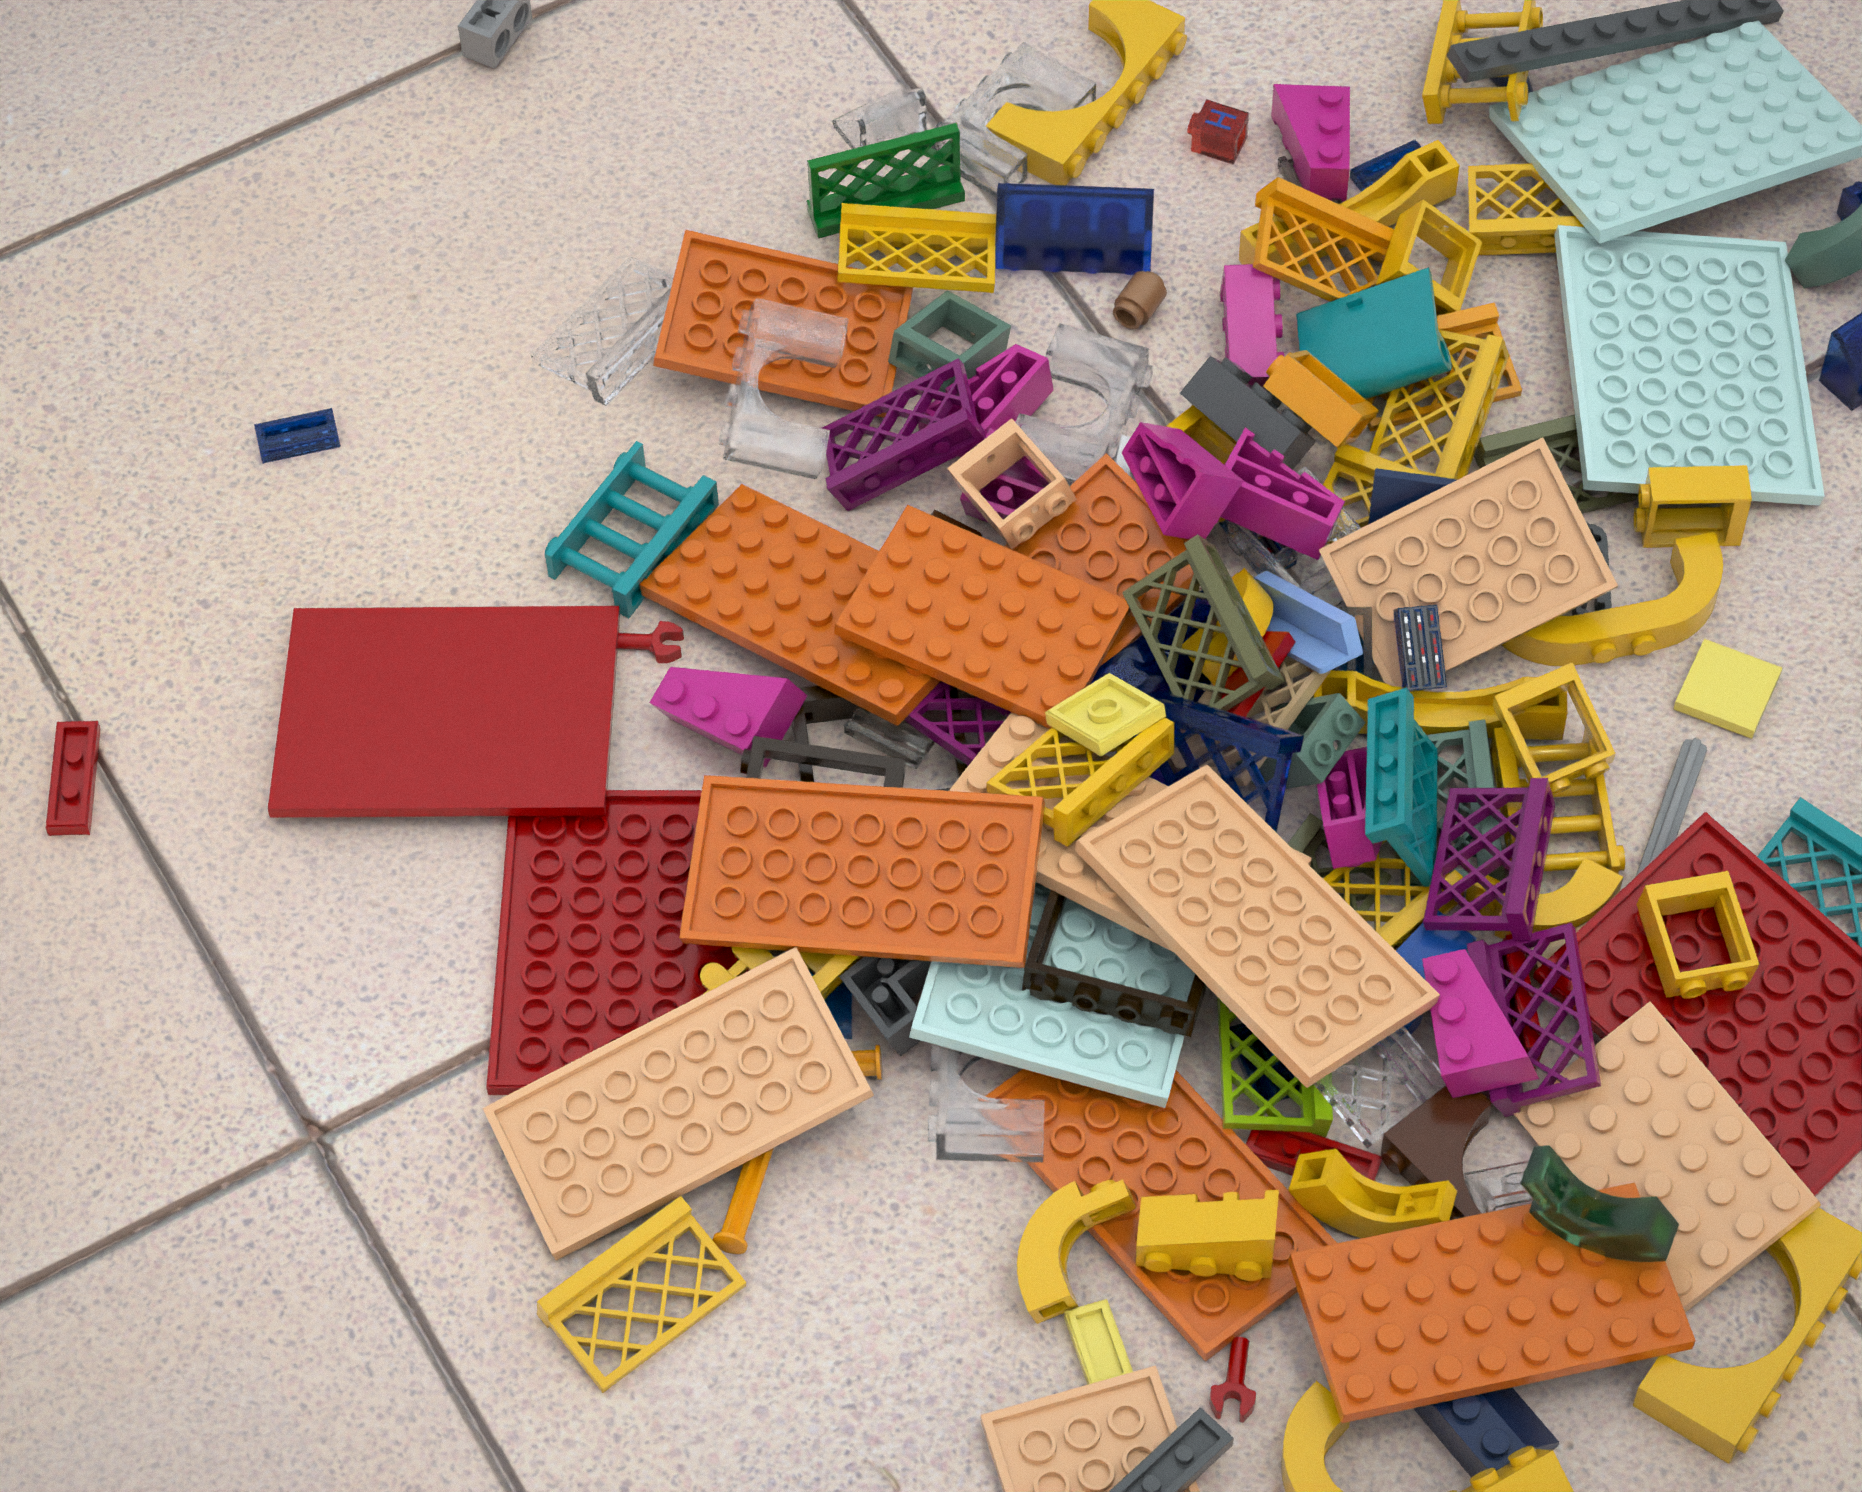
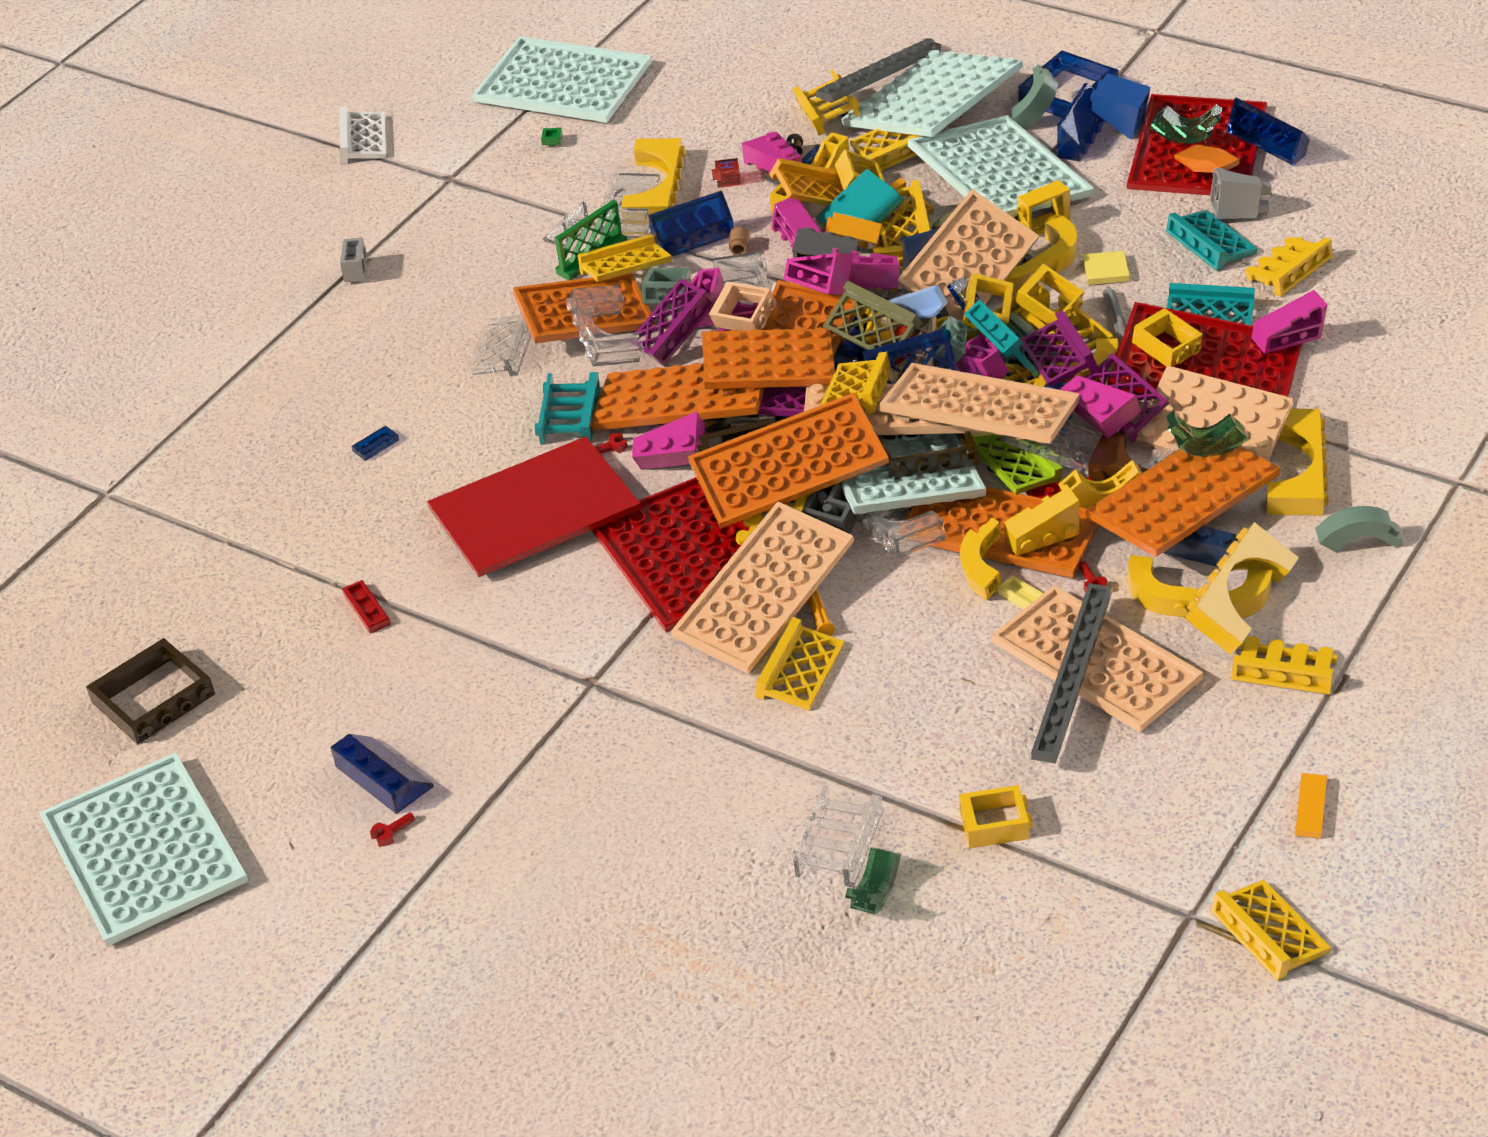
camera: 25 degrees left, 15 degrees down
(1105, 714) = (853, 362): light yellow tile -> none
(1372, 126) = (798, 142): none -> black bush
(1483, 656) = (990, 286): none -> yellow window

